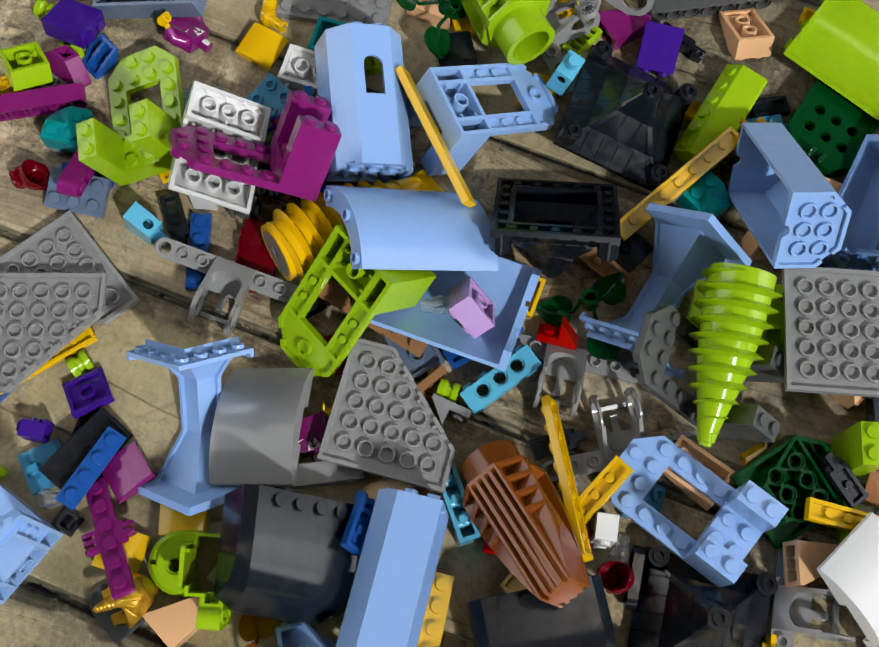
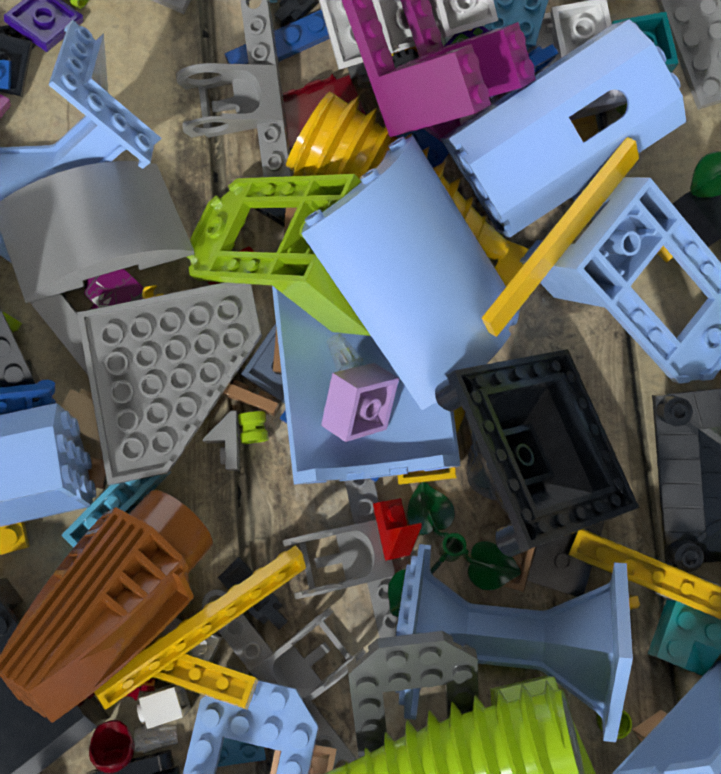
camera: 65 degrees right, 10 degrees up
(478, 403) = (254, 467): medium azure brick -> none

